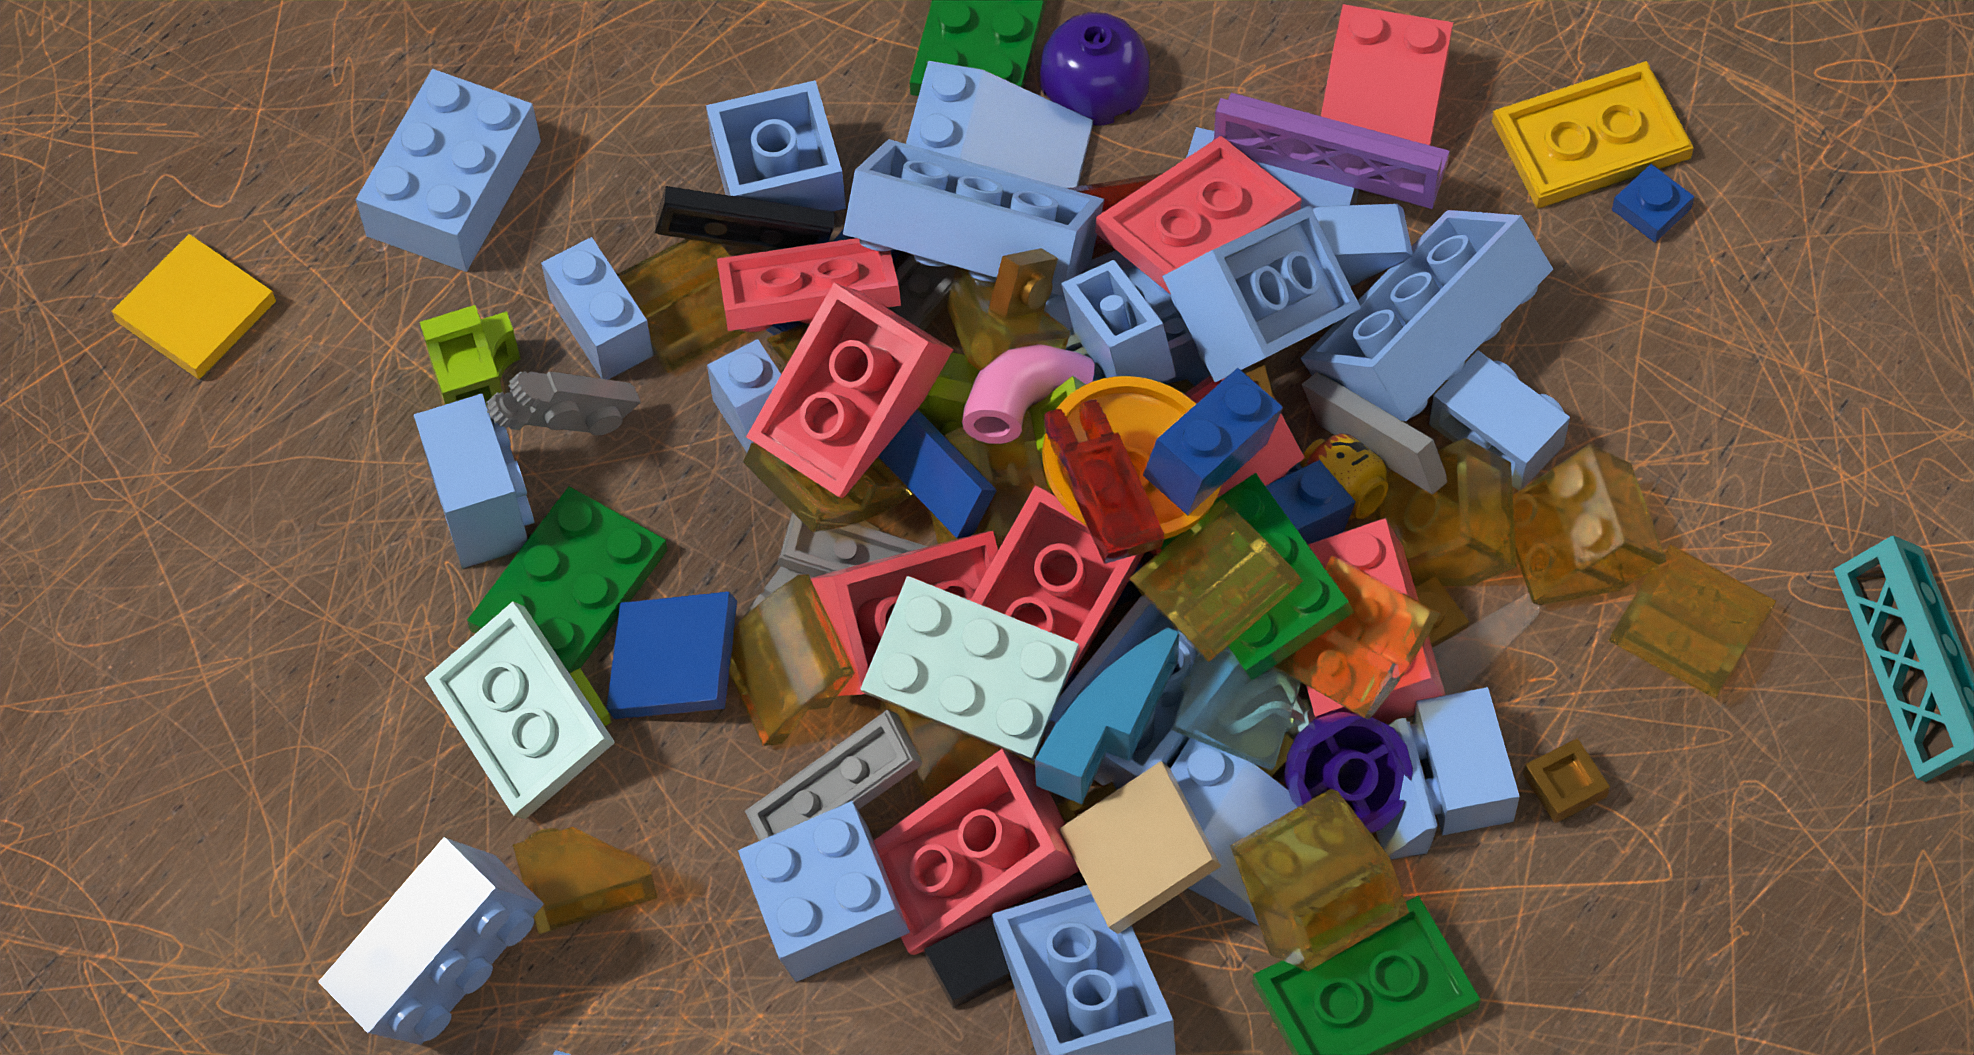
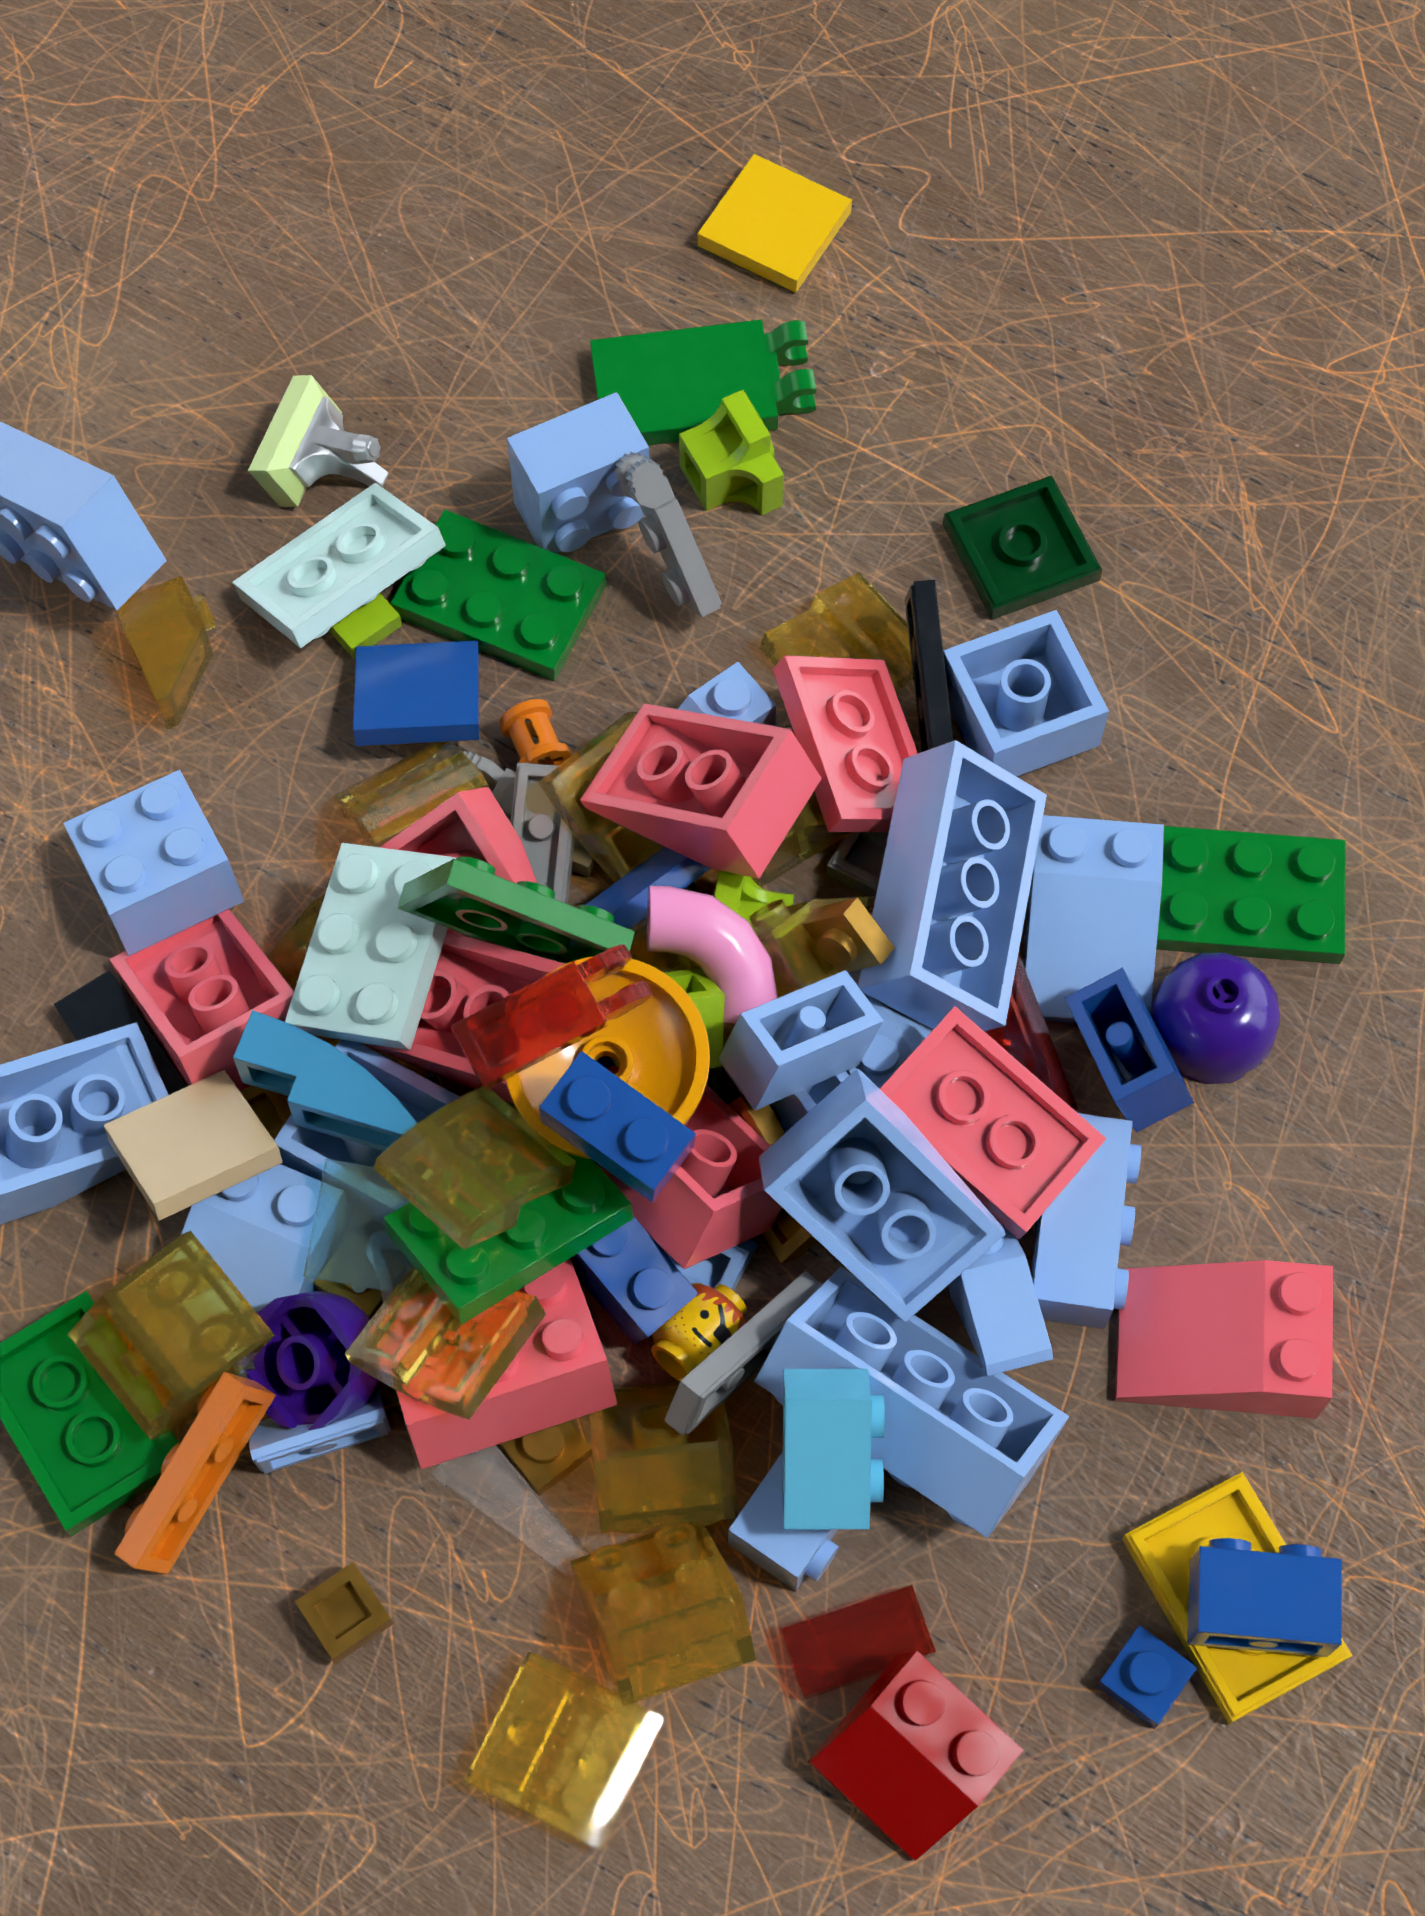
camera: 80 degrees right, 5 degrees up
(364, 393) = (681, 375): none -> green tile
(373, 726) = (310, 442): none -> piece
(448, 170) = (958, 403): light blue brick -> none
(597, 309) = (809, 558): light blue brick -> none
(603, 150) = (1022, 547): none -> dark green tile
(740, 560) = (539, 713): none -> orange bush
(851, 771) = (267, 854): light grey tile -> none
(983, 520) = (510, 914): none -> green plate
(1131, 119) = (1129, 1050): none -> blue brick
(1332, 149) = (1119, 1269): medium lavender fence -> none
(1443, 882) = (194, 1473): none -> orange plate
(1465, 761) = (354, 1493): light blue brick -> none
(1482, 356) = (828, 1448): none -> medium azure brick
(1608, 100) = (1265, 1599): none -> blue brick
(1613, 399) = (855, 1641): none -> clear red tile
(1712, 357) = (915, 1754): none -> red slope

